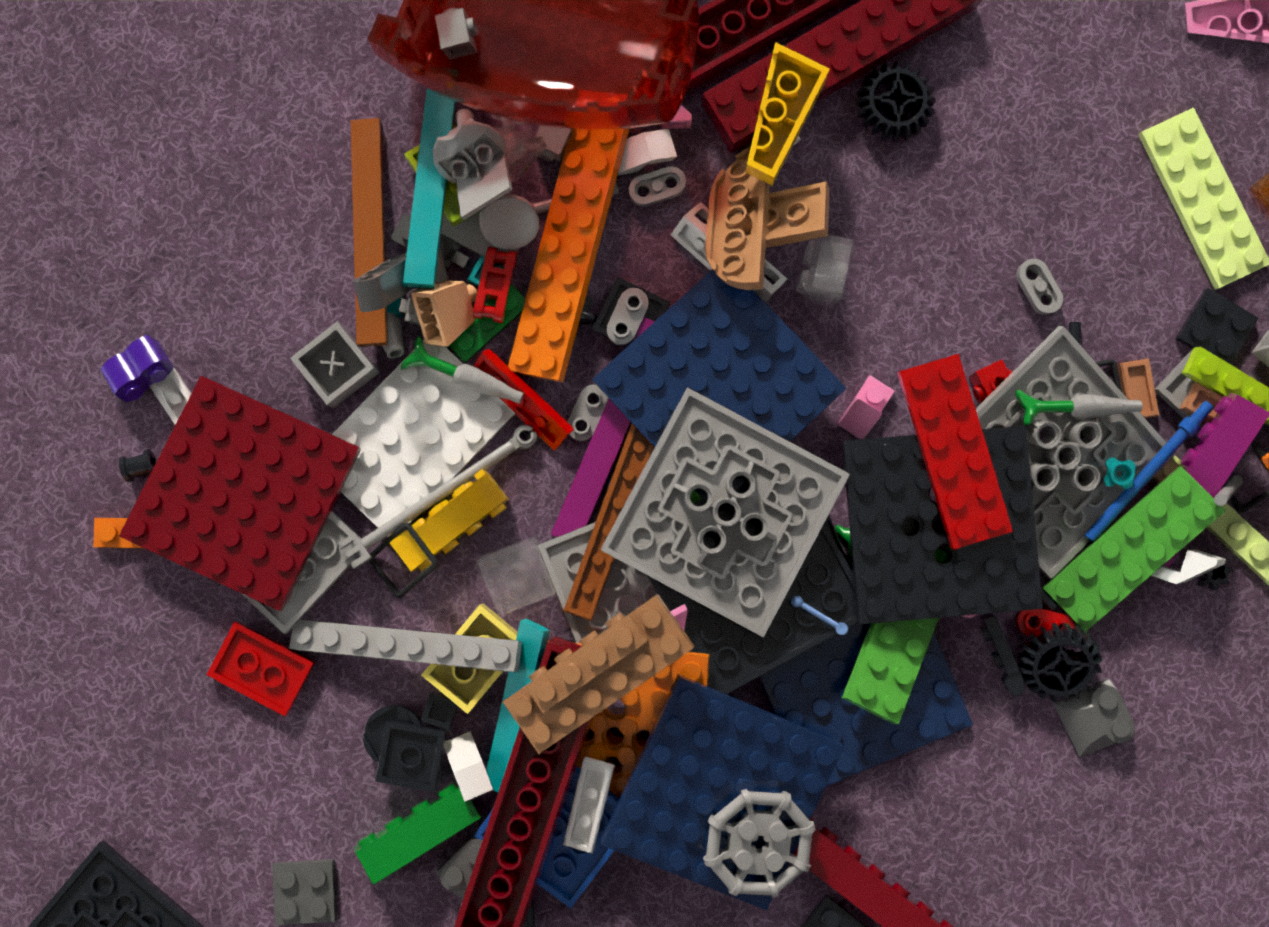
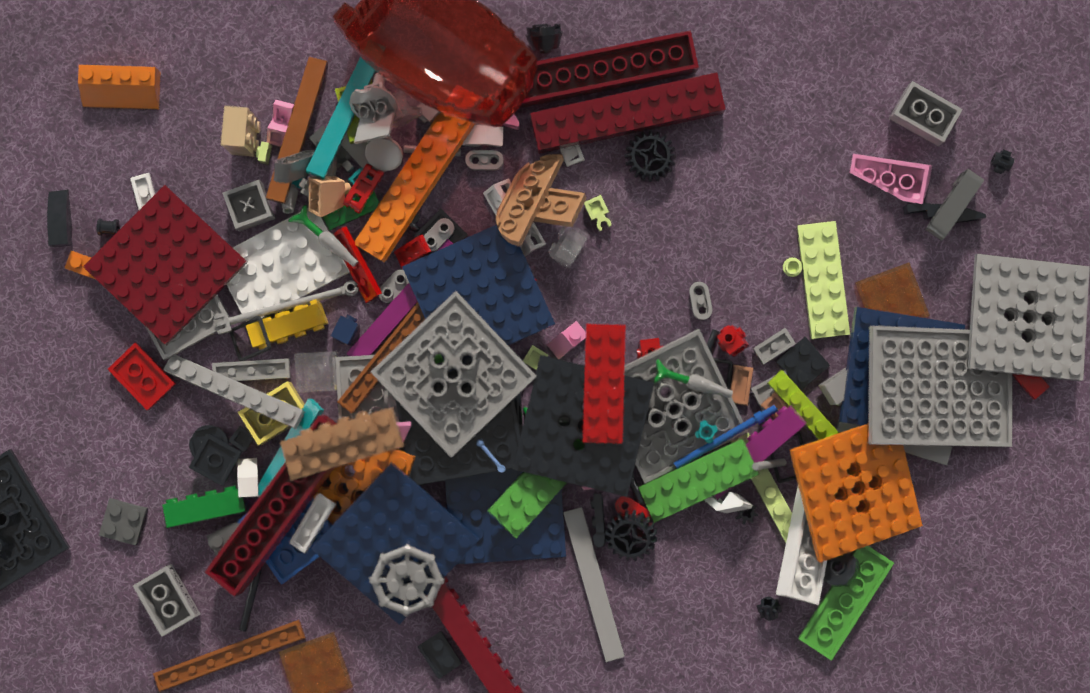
camera: 20 degrees right, 0 degrees up
(61, 478) = (59, 219): none -> black slope
(86, 254) = (119, 86): none -> orange slope
(137, 368) = (127, 167): dark purple brick -> none
(285, 258) = (240, 131): none -> tan brick
(331, 281) = (263, 152): none -> yellowish green plate
(339, 236) = (279, 123): none -> bright pink slope
(423, 603) = (254, 369): none -> light grey plate
(456, 33) = (391, 25): light grey brick -> none
(538, 499) = (345, 329): none -> dark blue brick
(598, 352) = (412, 250): none -> red plate
(786, 103) = (574, 139): yellow wedge -> none
(829, 448) = (533, 356): none -> yellowish green plate
(845, 204) = (596, 210): none -> yellowish green plate
(1026, 751) = (593, 584): none -> light grey tile
(1096, 718) = (643, 578): dark grey slope -> none
(1116, 335) = (732, 340): none -> red brick
(1154, 194) = (792, 267): none -> yellowish green plate
(1168, 317) = (774, 346): none -> light grey plate

